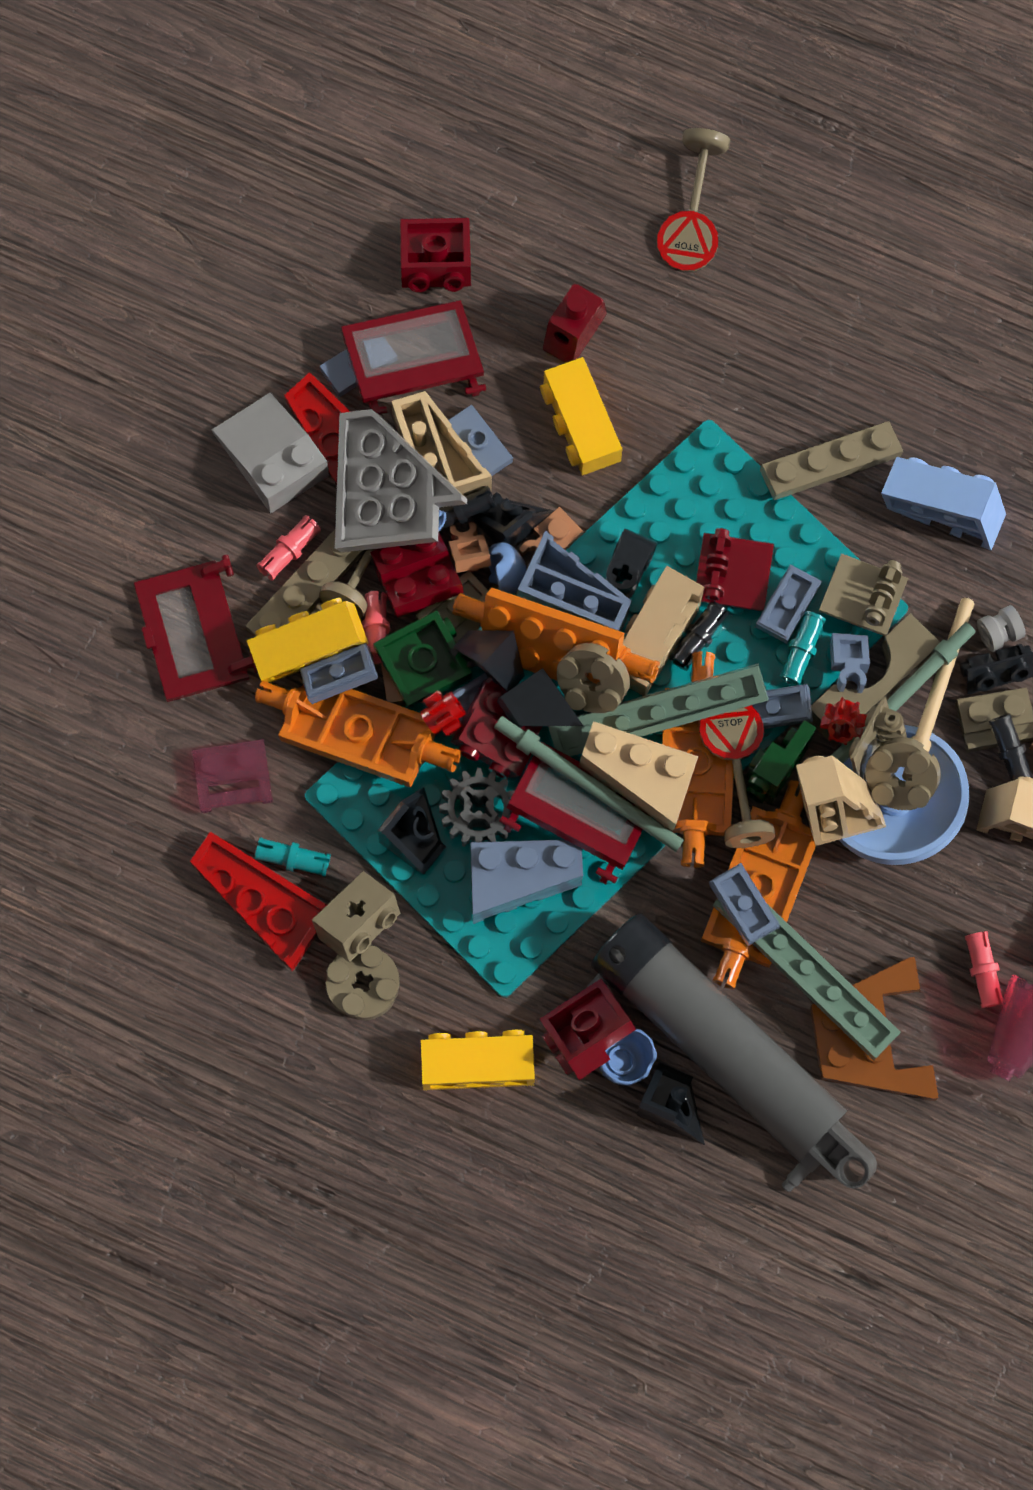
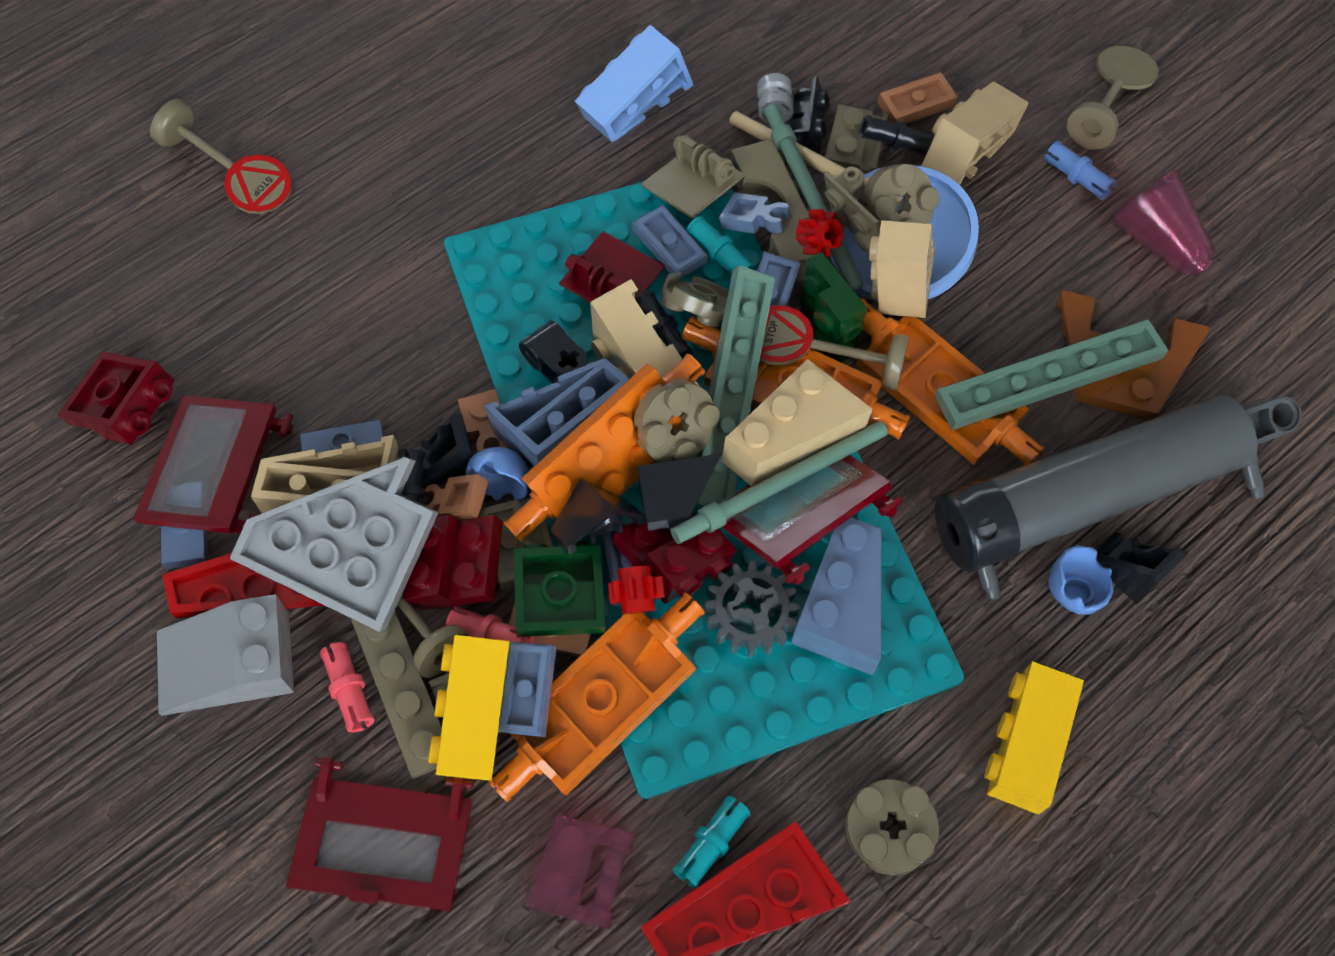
camera: 65 degrees left, 10 degrees down
(356, 916) = (802, 776): dark tan brick -> none
(412, 832) = (747, 692): black slope -> none
(577, 319) = (269, 292): dark red torso -> none
(581, 416) = (375, 338): yellow brick -> none
(585, 1029) = (1046, 602): dark red plate -> none
(734, 635) = (698, 297): none -> dark tan plate
(744, 904) = (974, 391): sand blue plate -> none
(831, 460) = (544, 160): dark tan plate -> none
(984, 969) = (1095, 241): coral pin -> none

